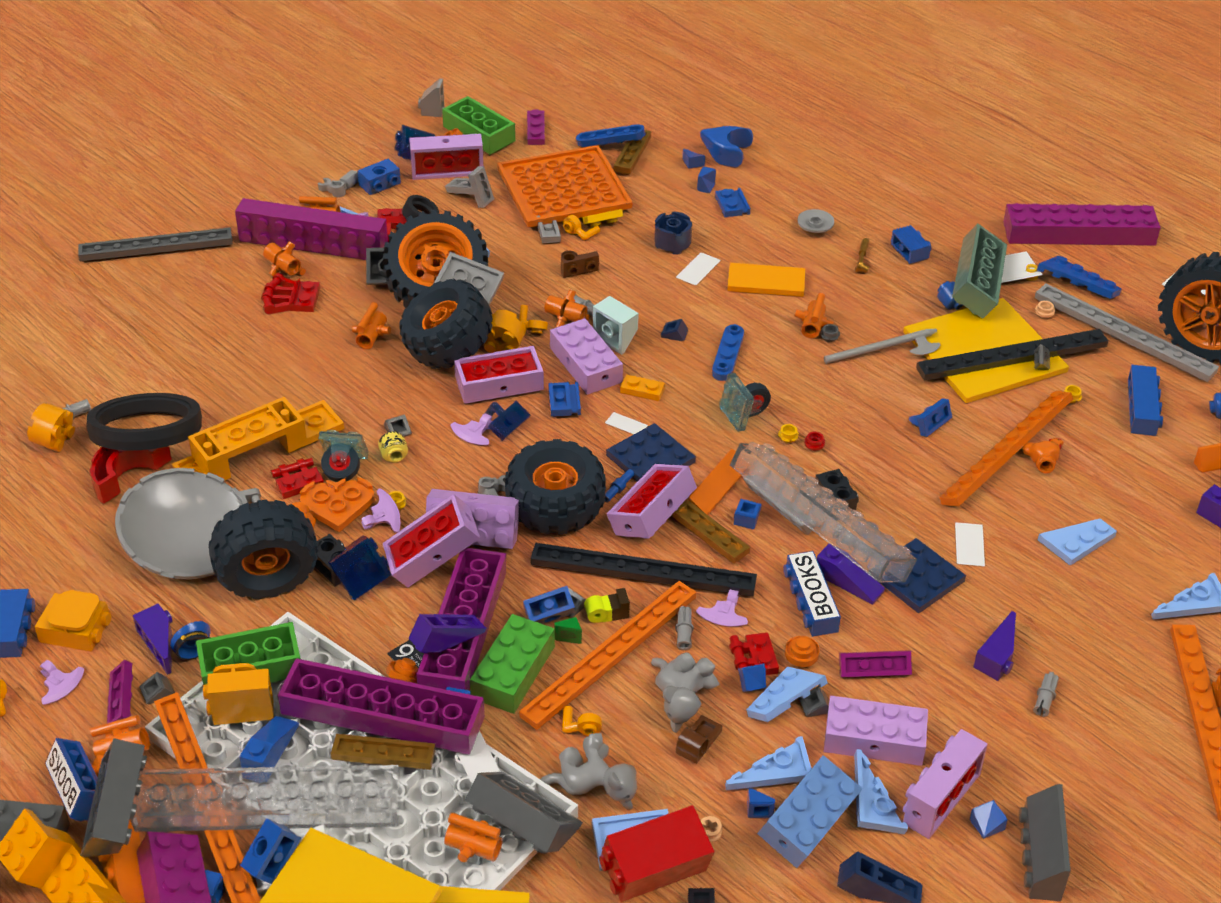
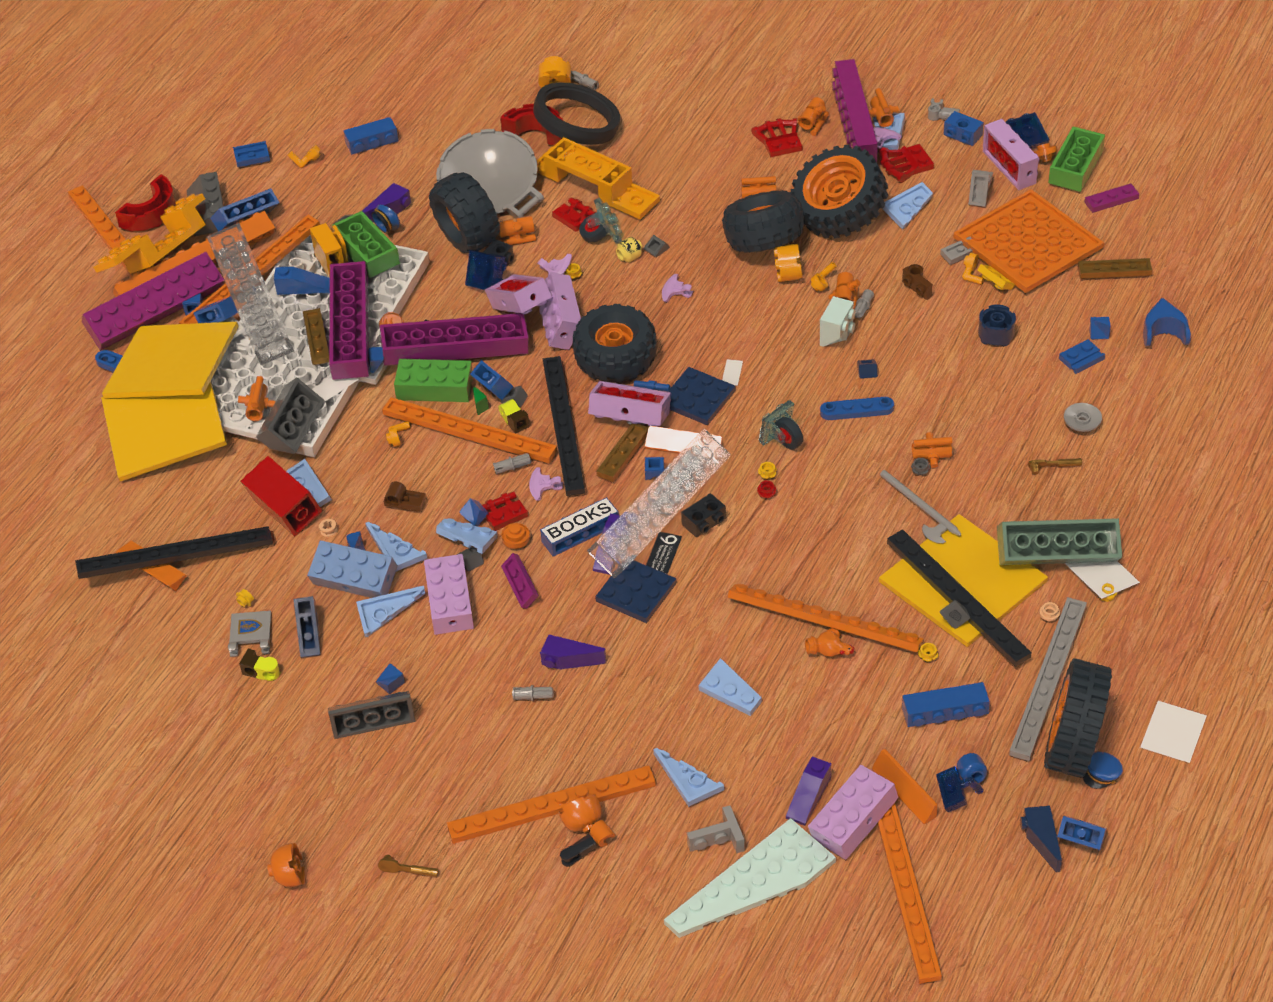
camera: 75 degrees right, 5 degrees up
(59, 683) = (334, 178): lavender piece -> none
(73, 620) = (383, 162): light orange brick -> none
(114, 798) = (210, 219): dark grey slope -> none
(119, 730) = (285, 218): orange pin -> none
(120, 692) = (331, 208): magenta plate -> none
(154, 244) = (795, 44): dark grey plate -> none
(338, 502) = (556, 241): orange plate -> none
(416, 203) = (931, 156): black tyre -> none
(433, 100) = (1096, 119): light grey slope -> none
(443, 631) = (419, 323): dark purple slope -> none
(480, 276) = (818, 213): light grey plate -> none
(499, 374) = (738, 277): lavender brick -> none
(507, 420) = (692, 300): clear blue plate -> none
(564, 399) = (736, 325): blue plate -> none
(580, 778) = (342, 448): light grey animal -> none
(586, 356) = (792, 321): lavender brick -> none
(610, 135) = (1121, 245): blue plate -> none
(642, 387) = (779, 368): light orange plate -> none
(680, 682) = (448, 472): light grey animal -> none
(693, 159) = (1132, 311): blue slope -> none
(698, 268) = (968, 361): white sticker -> none
(766, 279) = (976, 407): light orange tile -> none
(910, 244) = (1090, 492): blue brick -> none
(933, 417) = (836, 558): blue tile -> none
(944, 783) = (404, 639): lavender brick -> none
(969, 544) = (692, 618): white sticker -> none
(1080, 277) = (1119, 627): blue wing -> none
(1081, 224) = (1208, 615): magenta brick -> none

